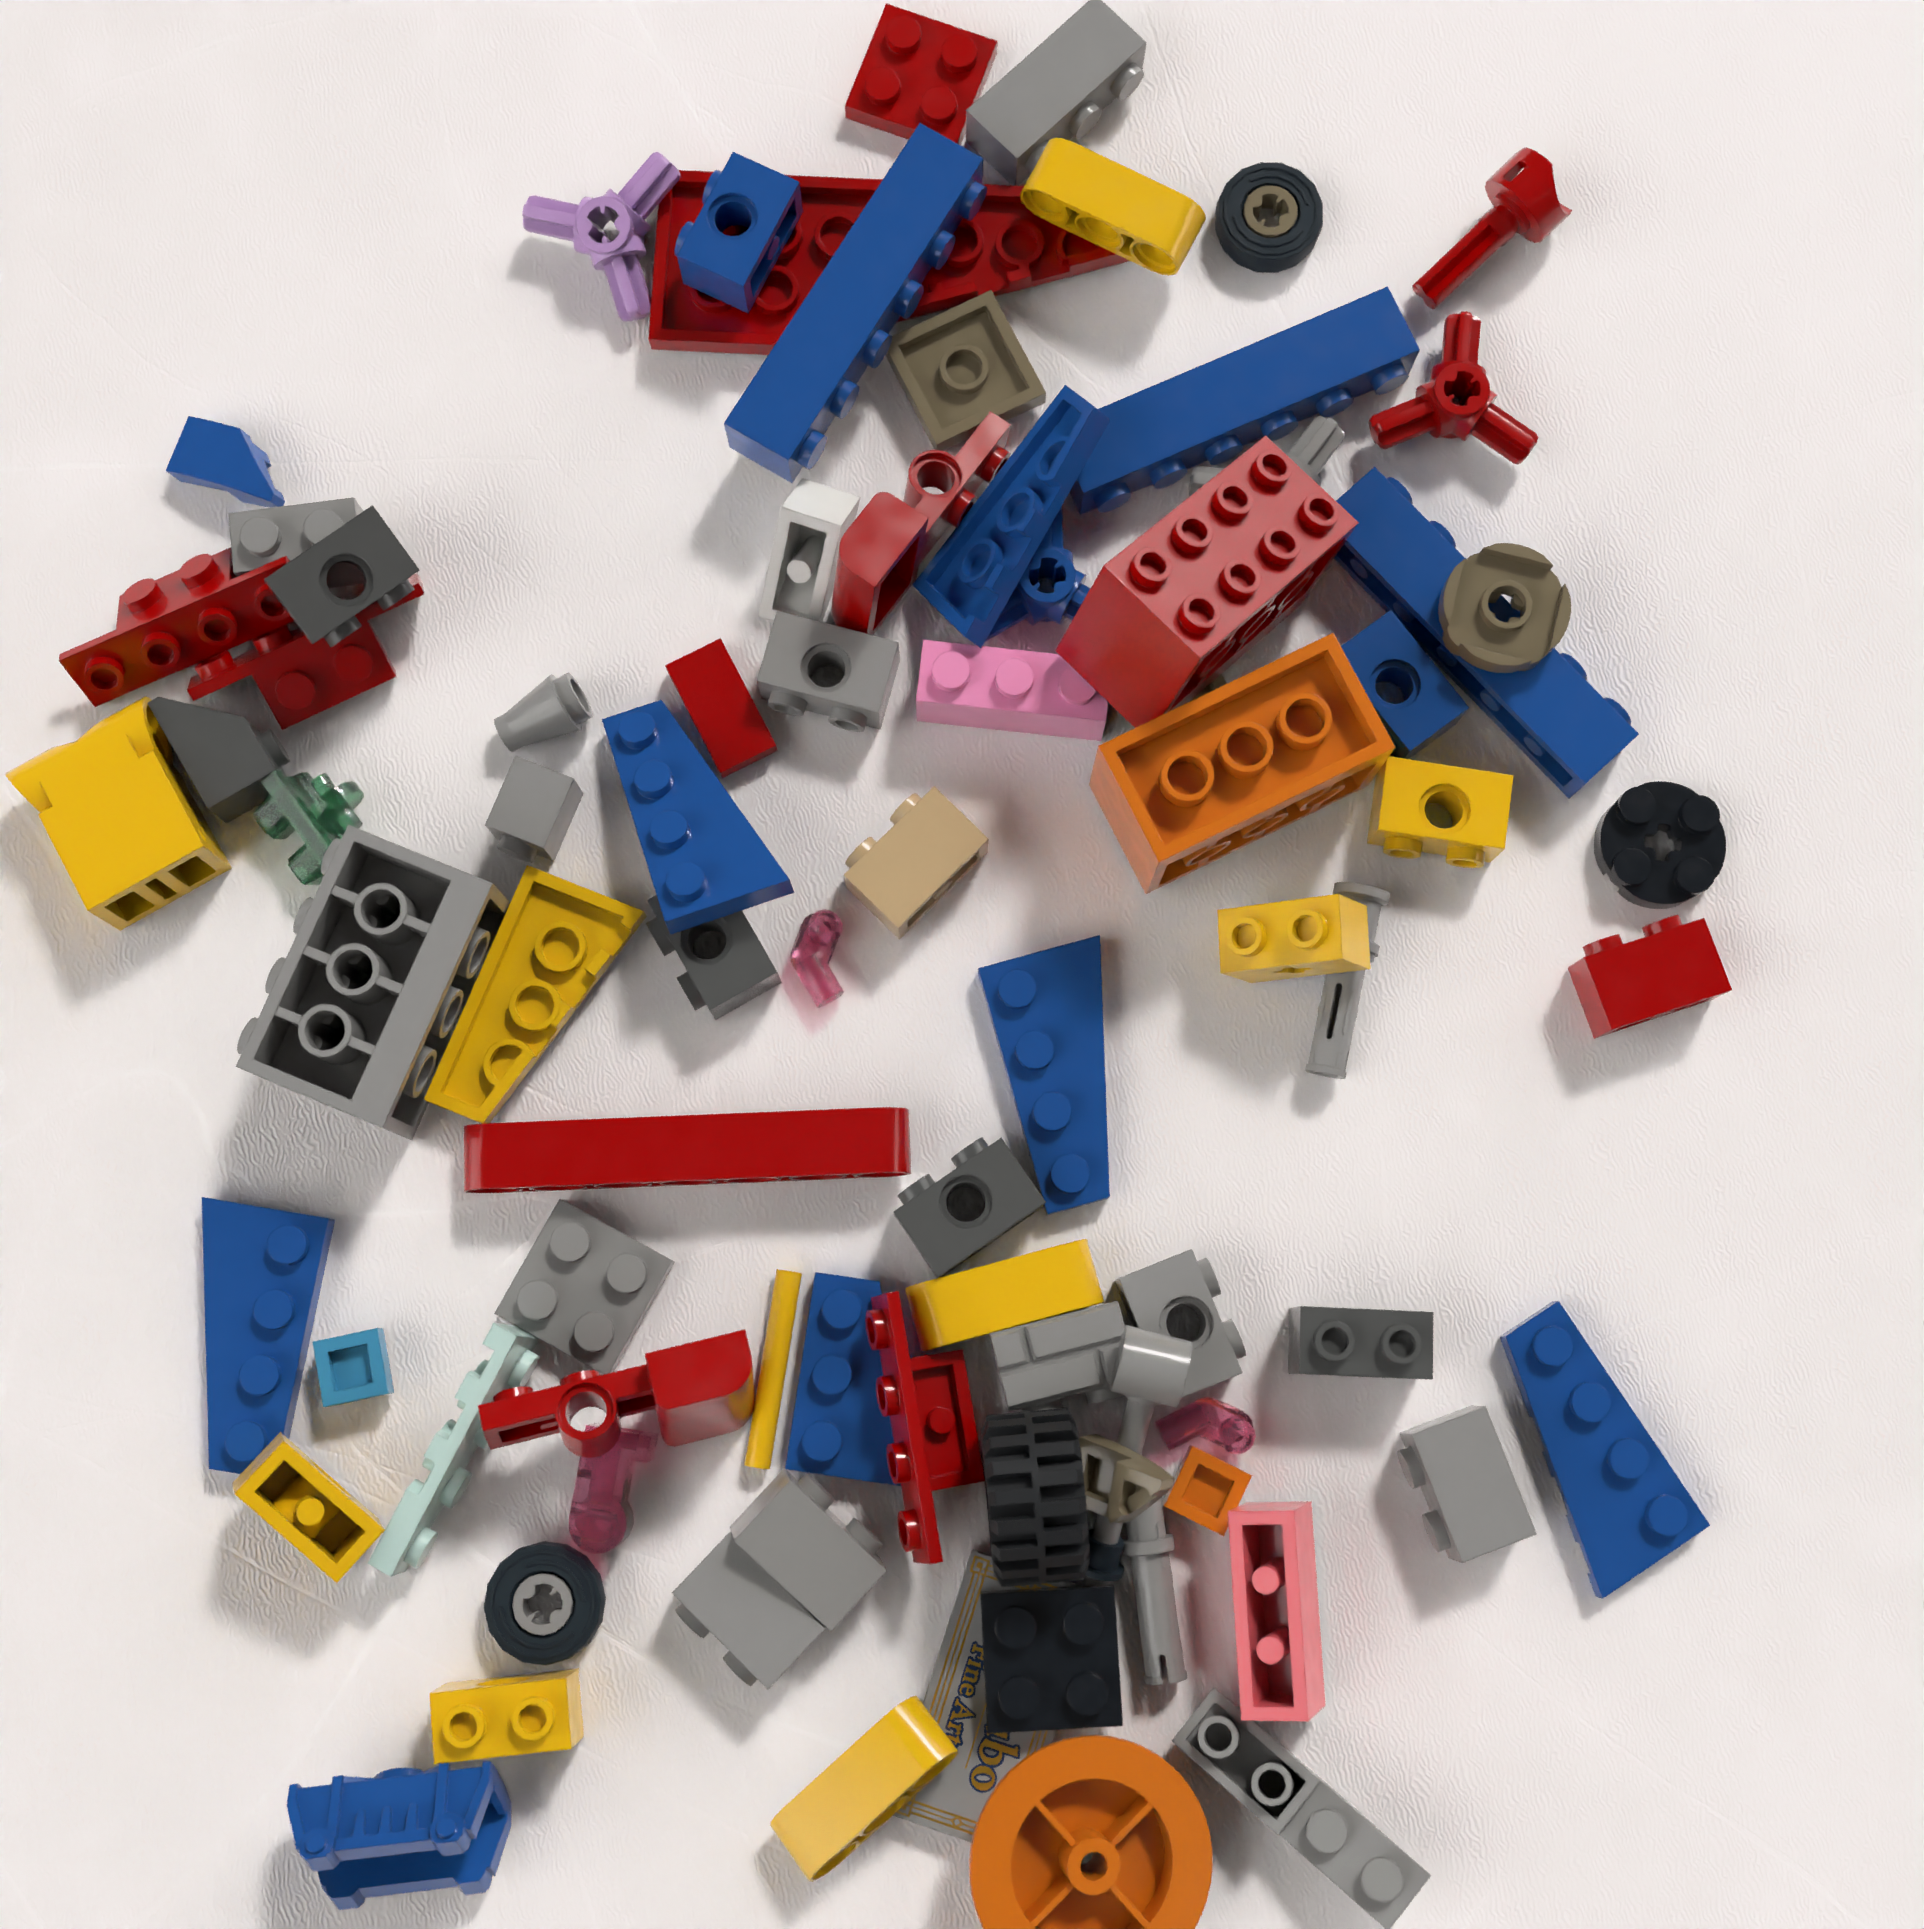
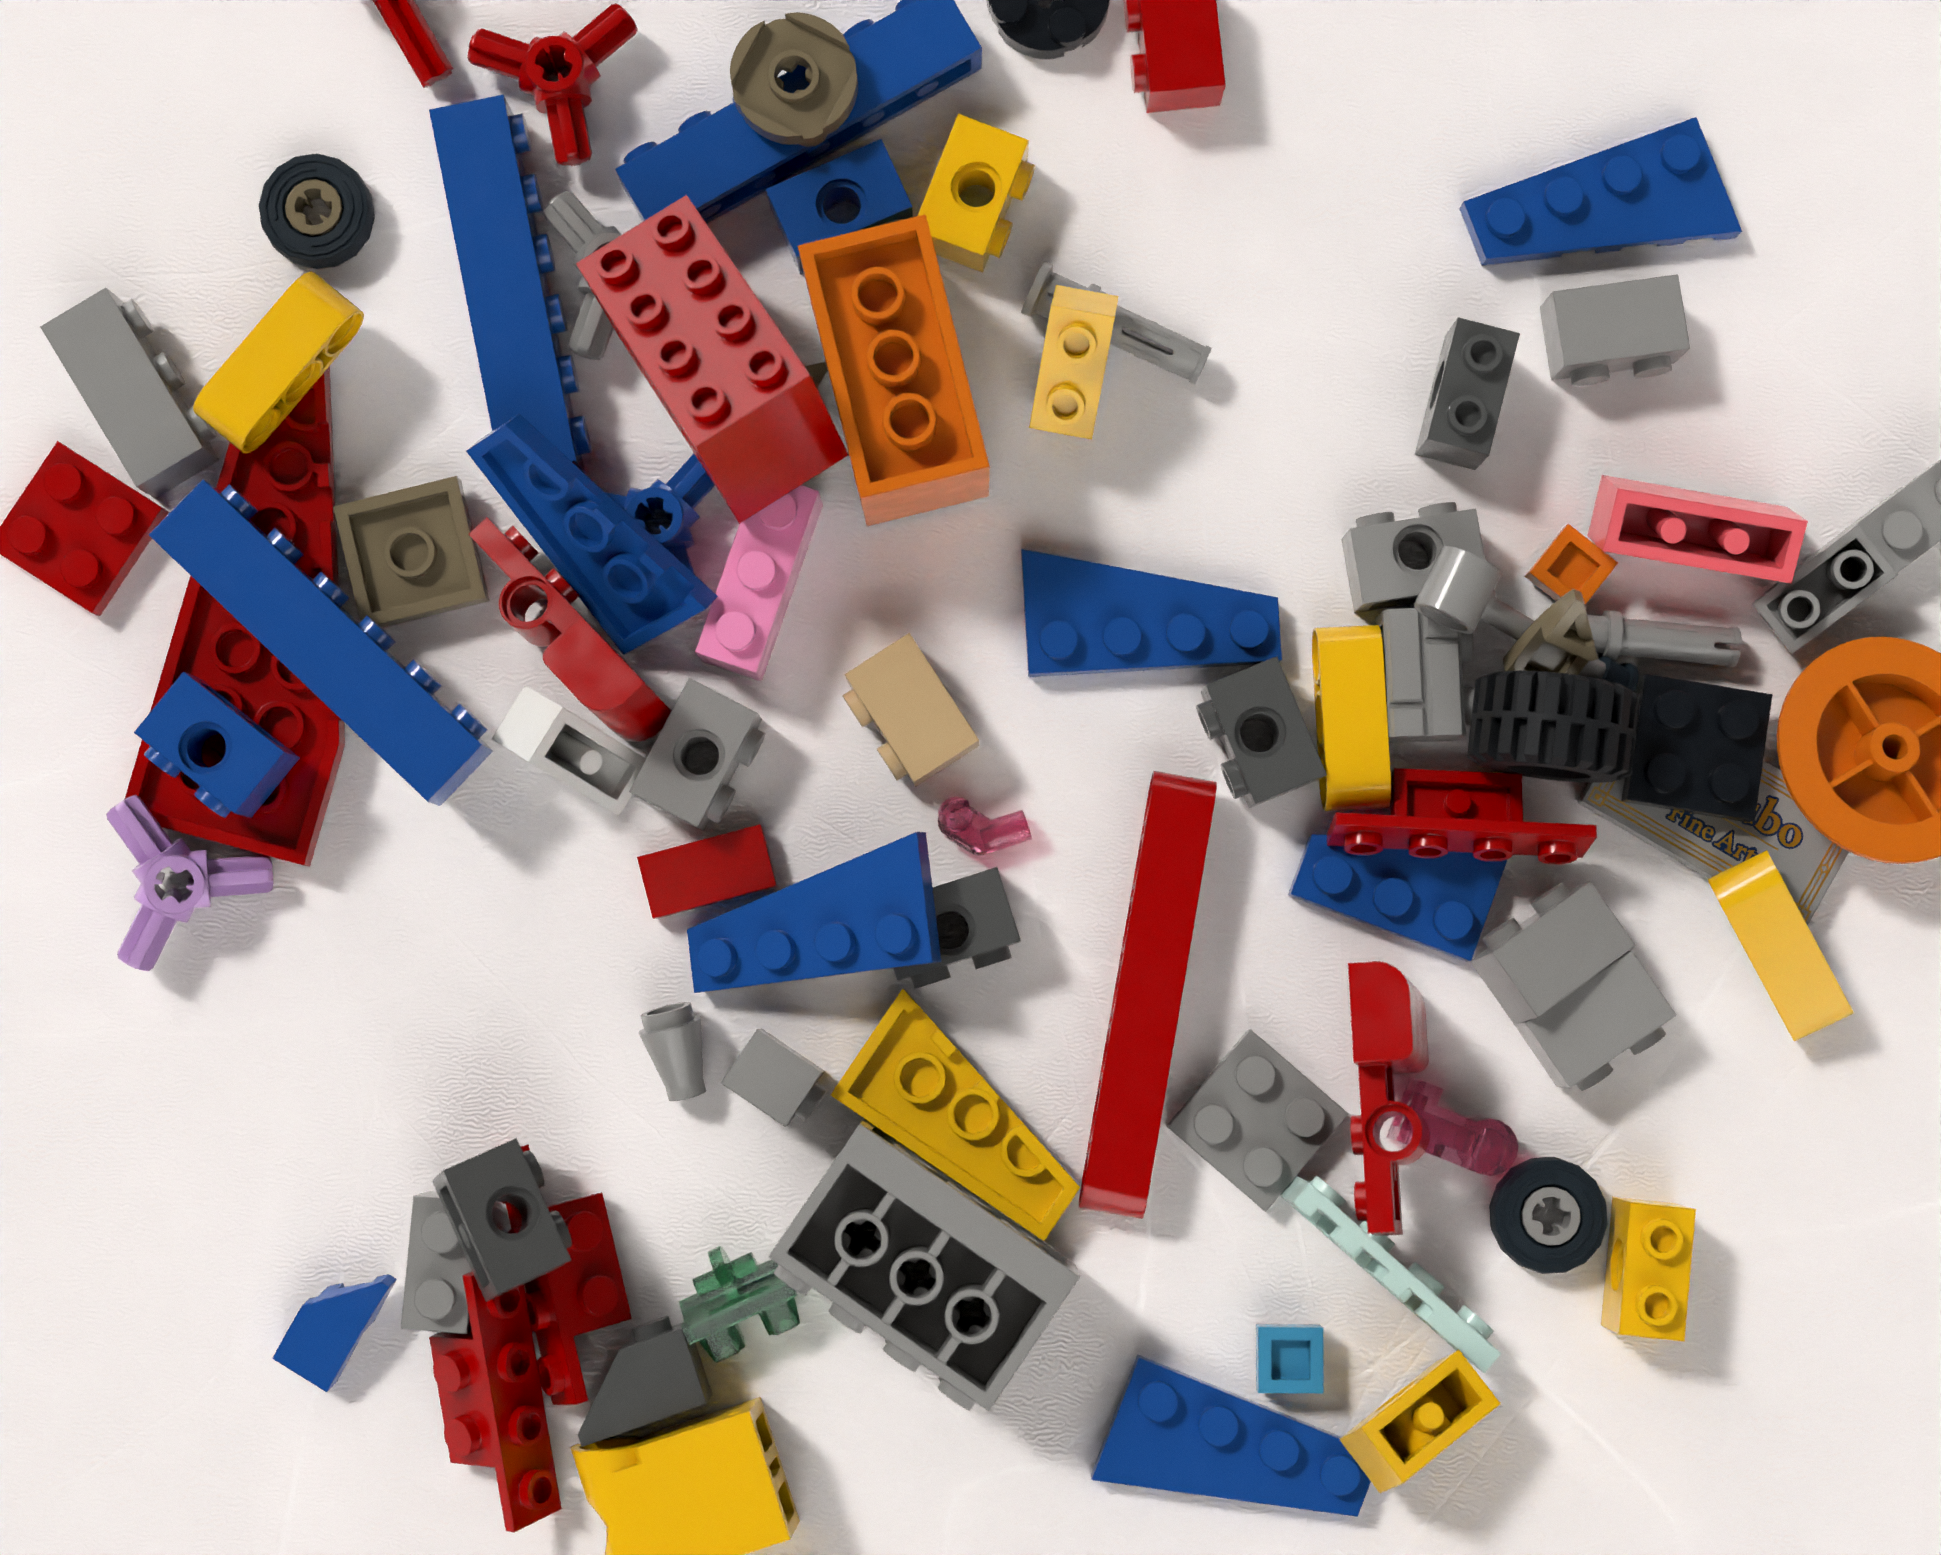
camera: 75 degrees left, 5 degrees up
(402, 1831) = (1735, 1385): blue piece -> none
(773, 1369) = (1365, 950): yellow bar -> none
(1210, 1420) = (1508, 548): clear pink arm -> none

